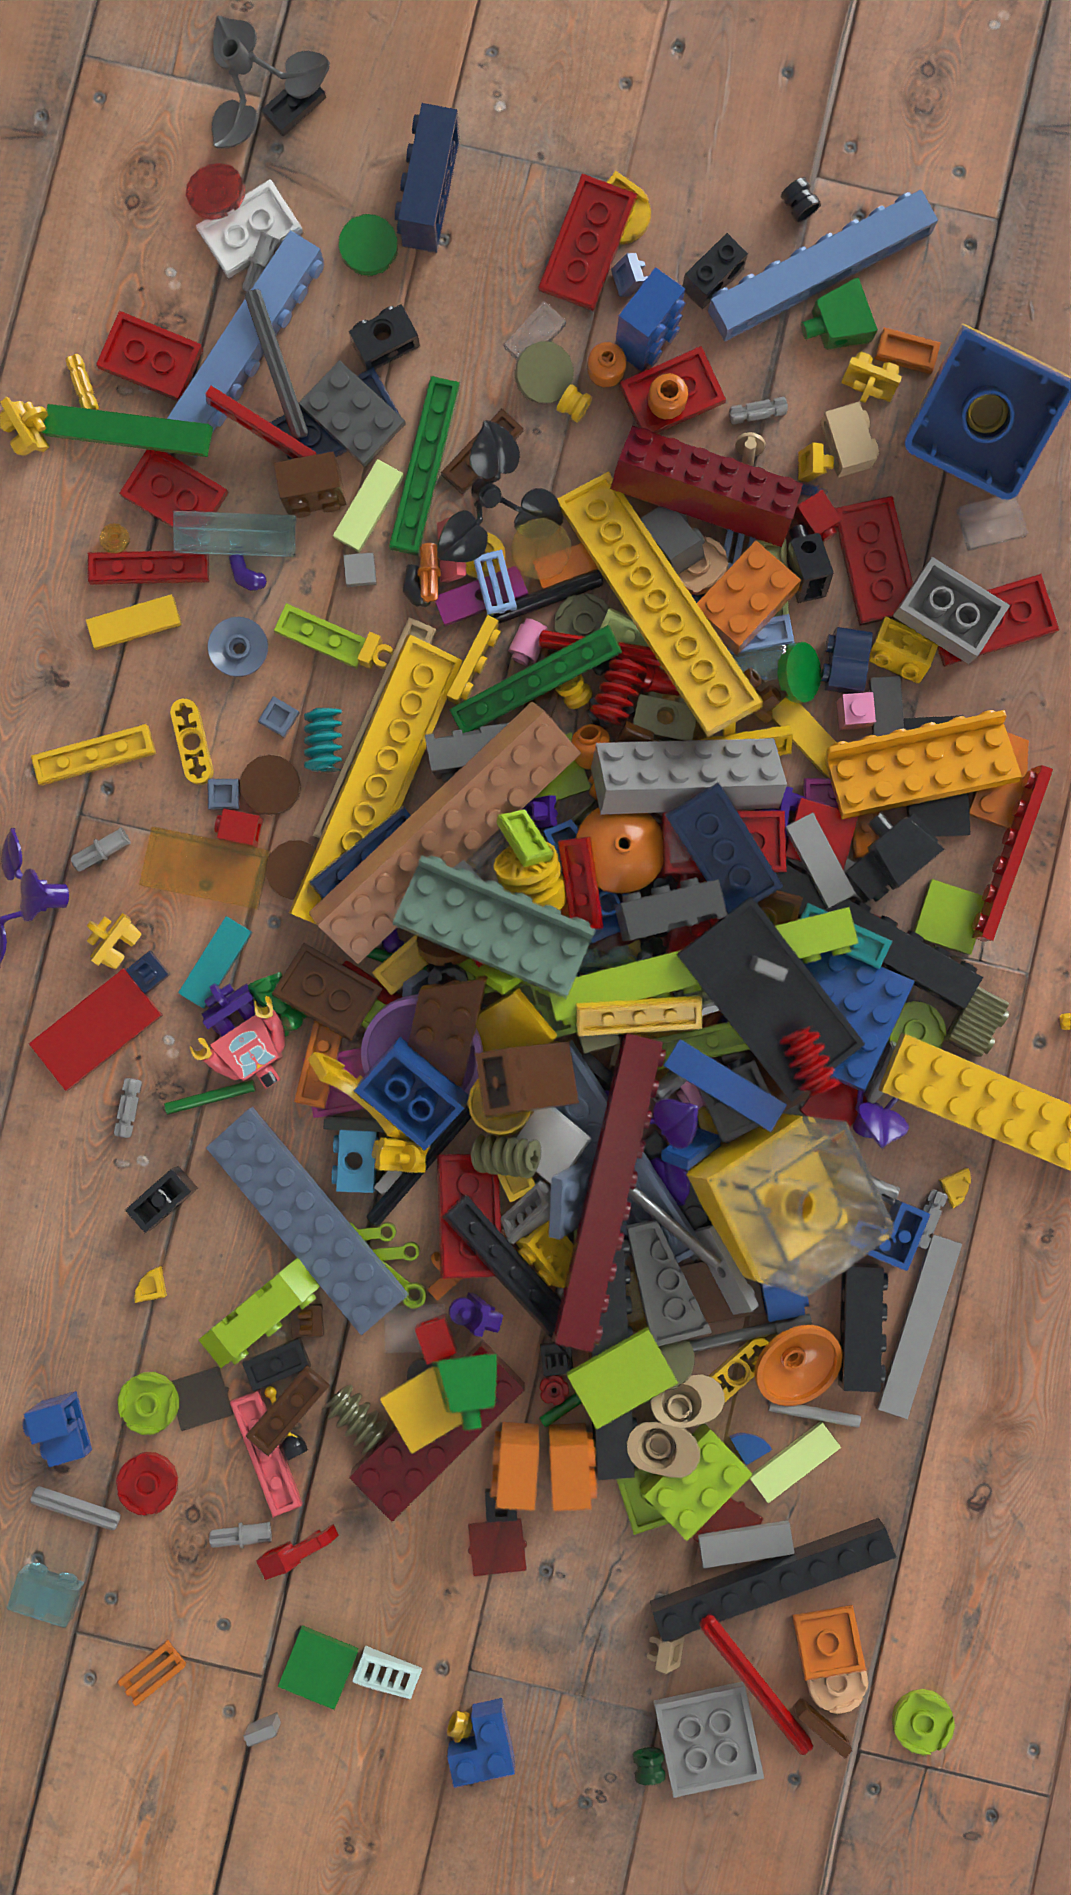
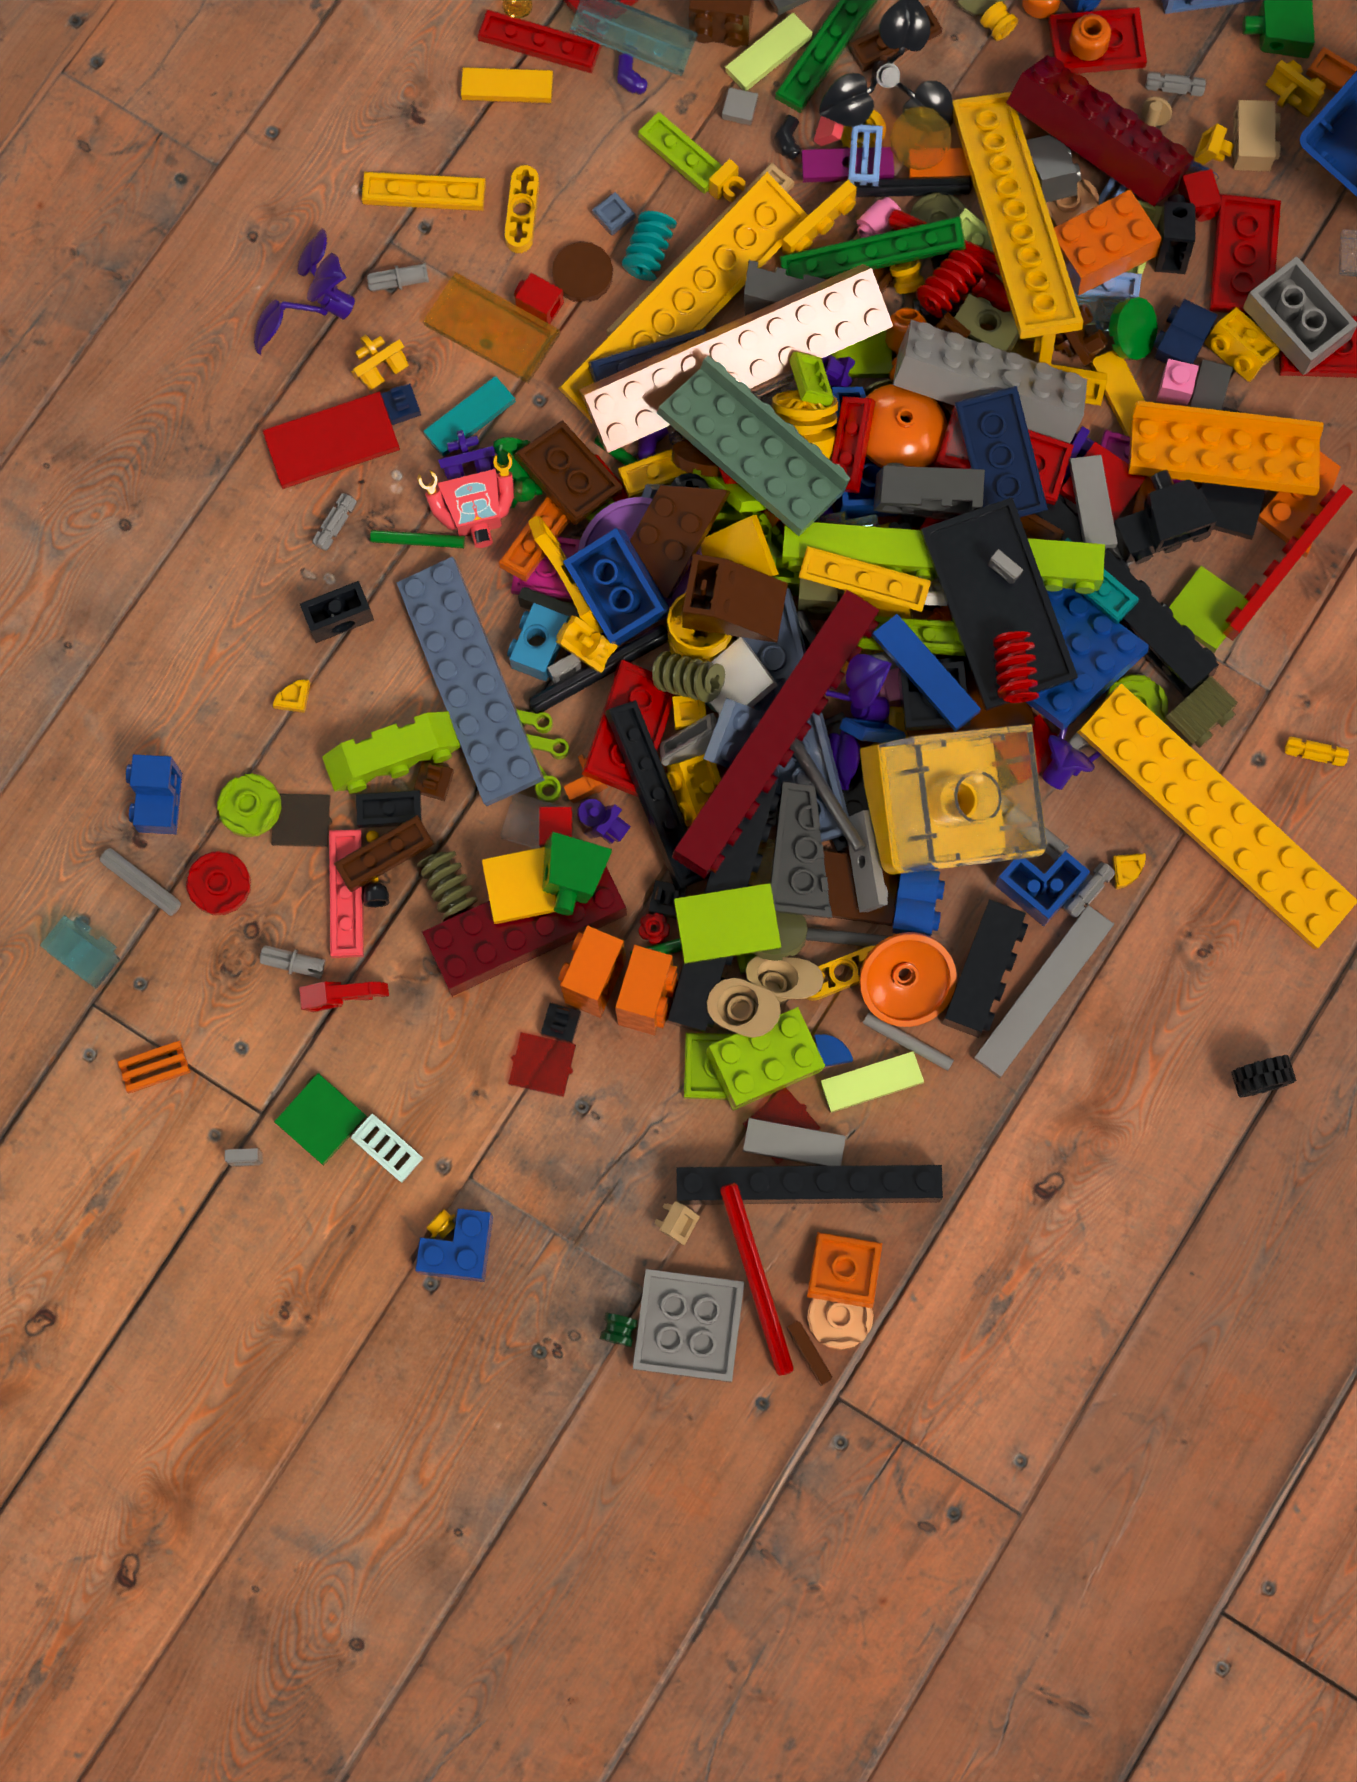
camera: 25 degrees right, 10 degrees down
(223, 794) = (534, 262): sand blue tile -> none
(232, 633) = (596, 124): sand blue dish -> none
(288, 866) = (571, 349): reddish brown tile -> none
(429, 572) = (805, 126): orange axle -> none
(923, 1721) = (915, 1389): lime tile -> none

